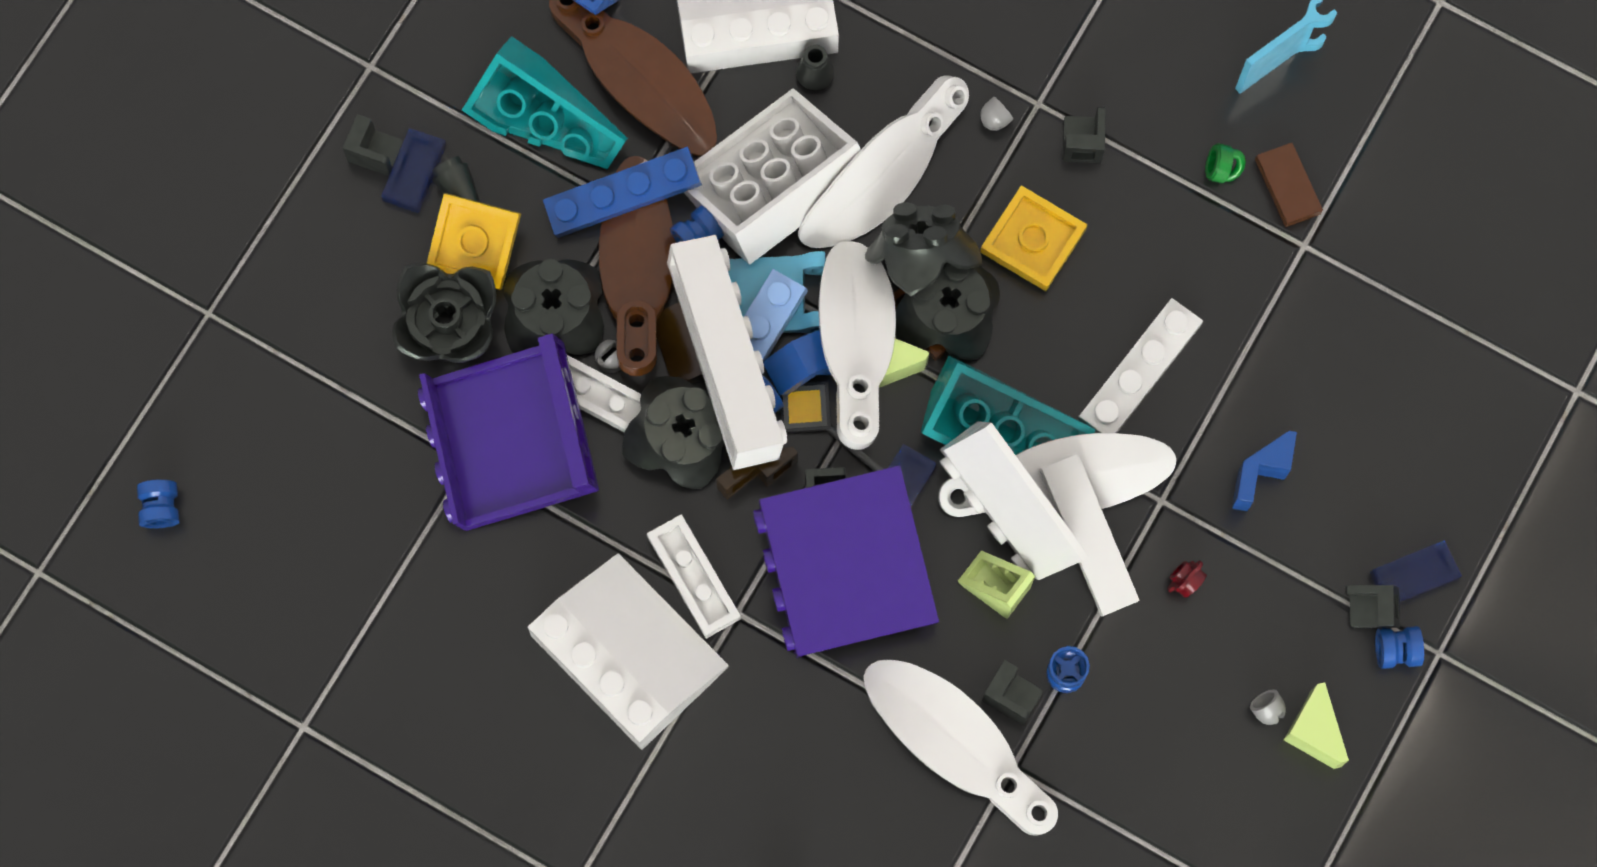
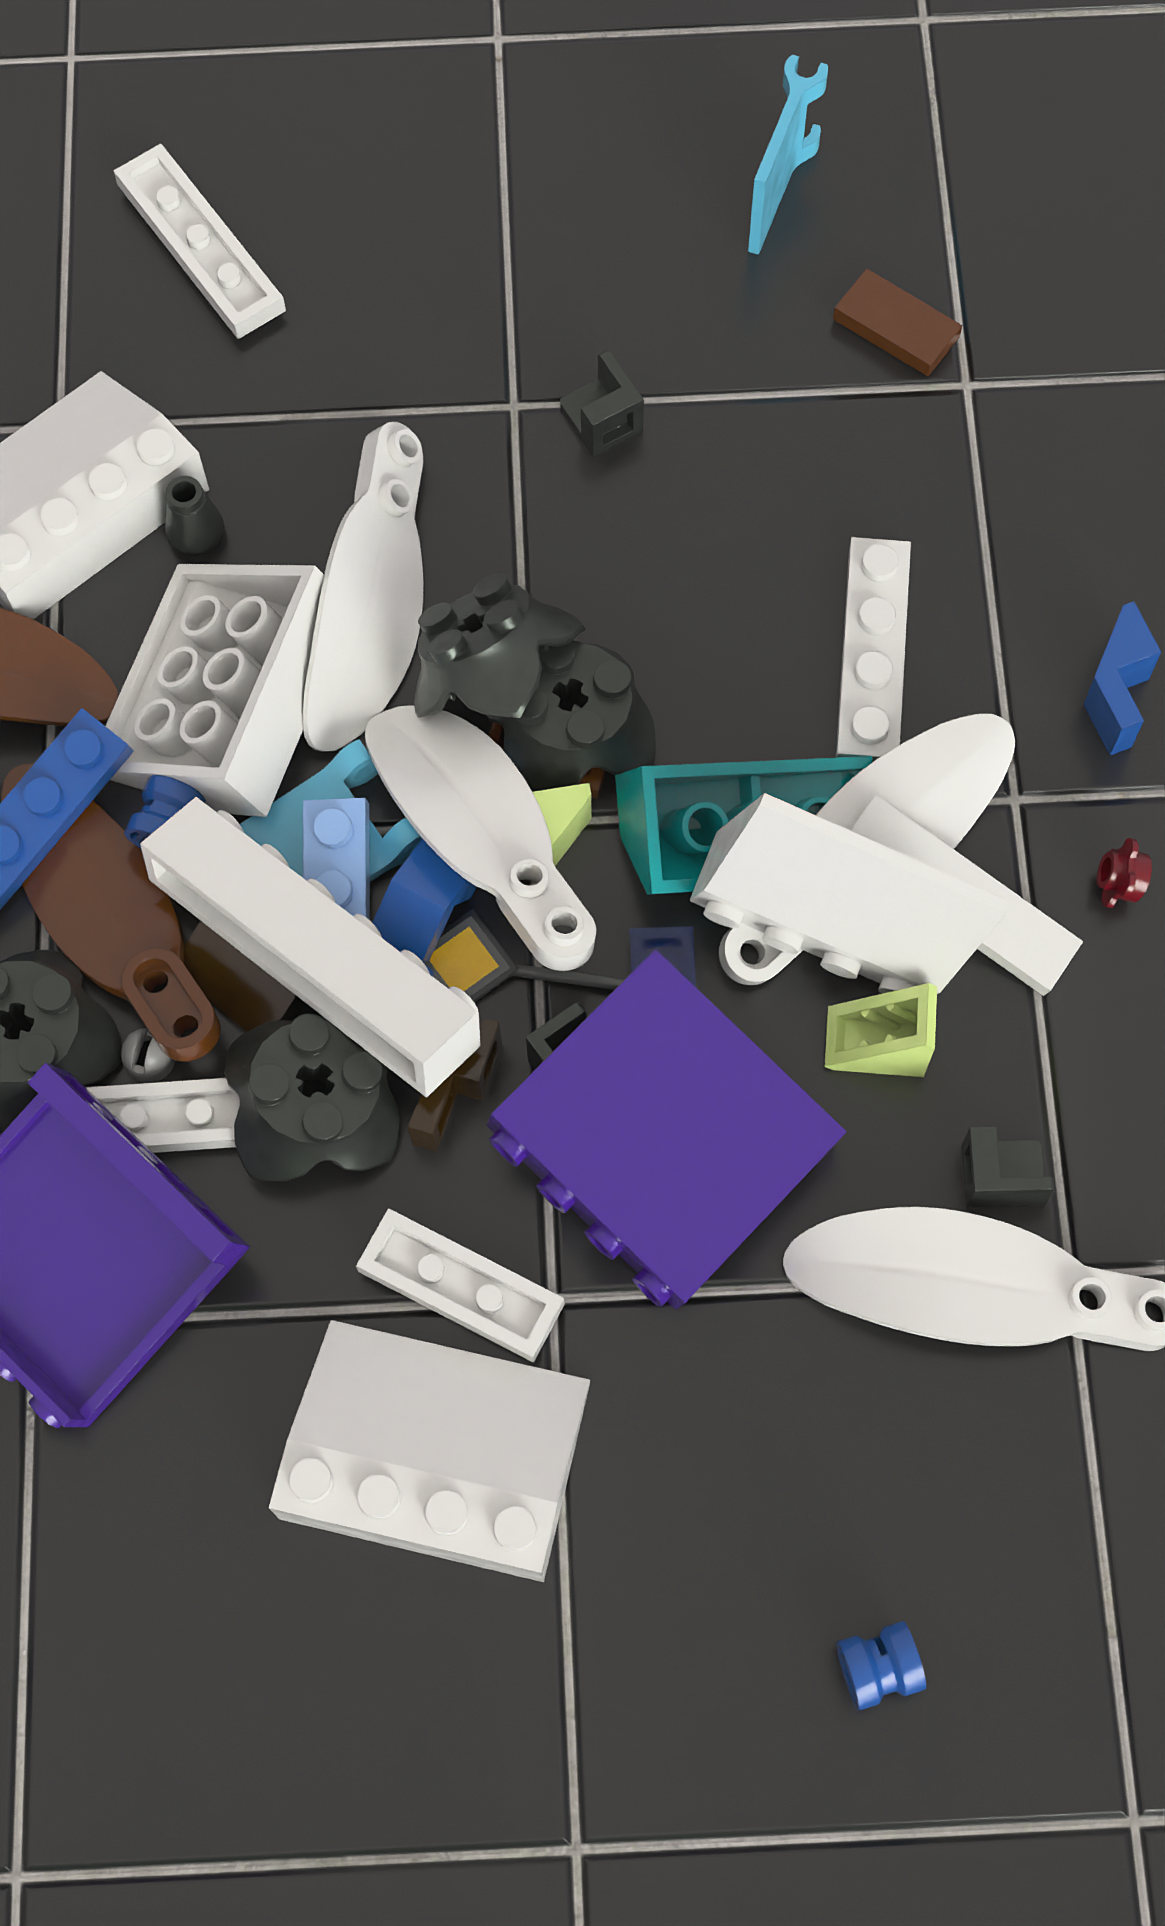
camera: 30 degrees left, 5 degrees down
(995, 115) = (469, 444): light grey hinge -> none
(1033, 238) = (624, 566): yellow plate -> none
(1070, 662) = (1061, 1077): blue wheel -> none
(1220, 163) = (800, 339): green tile -> none

